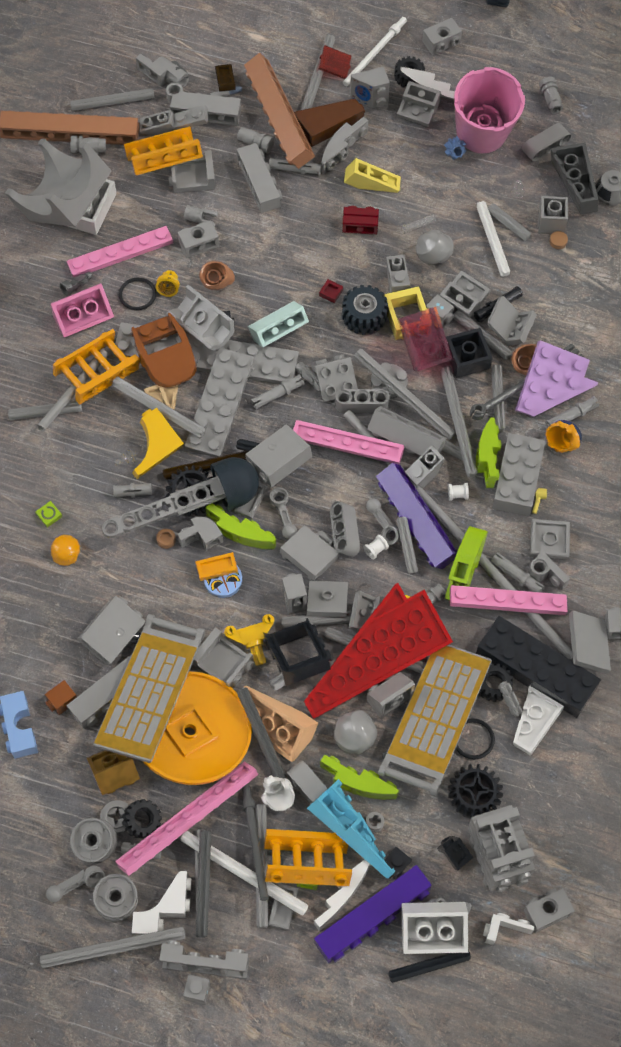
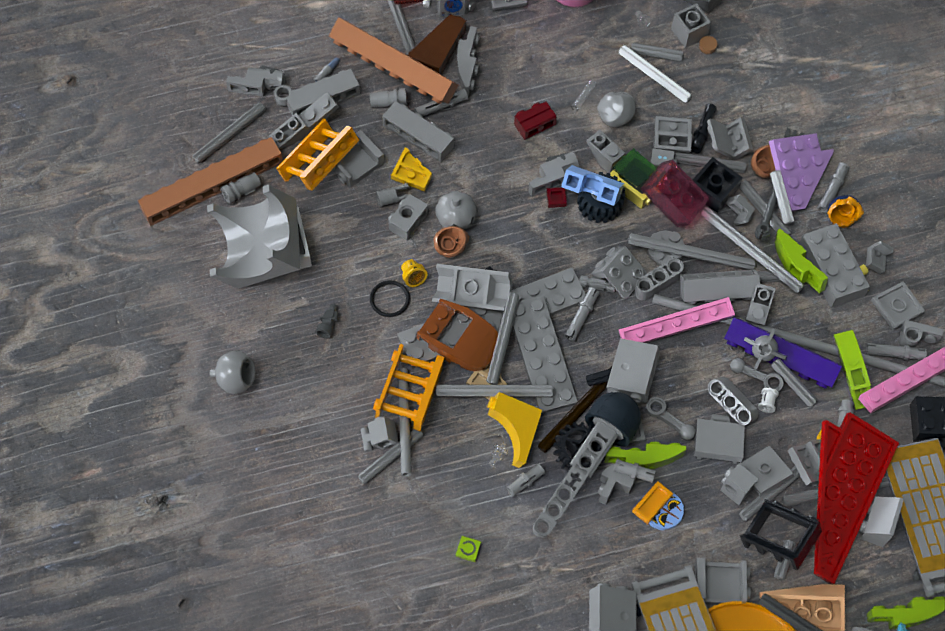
camera: 35 degrees left, 0 degrees up
(47, 388) = (379, 434): none -> light grey brick
(65, 550) = (508, 572): light orange hair -> none
(81, 310) = (355, 344): bright pink slope -> none
(120, 251) = (344, 270): bright pink plate -> none
(166, 538) = (587, 505): medium nougat tile -> none
(194, 370) = (503, 338): none -> light grey axle
(216, 530) = (634, 470): none -> light grey pin
(225, 77) = (317, 57): dark brown tile -> none
(229, 205) = (411, 171): none -> yellow wing
(238, 254) = (456, 210): none -> light grey piece
(252, 637) = (730, 544): yellow axle -> none
(278, 324) = (538, 253): light aqua brick -> none
(341, 270) = (552, 173): none -> light grey plate
(355, 732) = (879, 573): light grey piece -> none
(364, 300) = (581, 180): none -> light blue arch
(369, 177) = (513, 77): light yellow slope -> none
(400, 502) = (765, 348): none -> light grey piece
(408, 300) = (634, 168): none -> clear green piece
(455, 147) = (565, 11): medium blue gear -> none
(458, 491) = (796, 310): white bush -> none
(477, 382) = (741, 206): none -> light grey bracket
(516, 394) = (782, 198): none -> light grey axle
(563, 489) = (877, 256): none -> light grey bracket

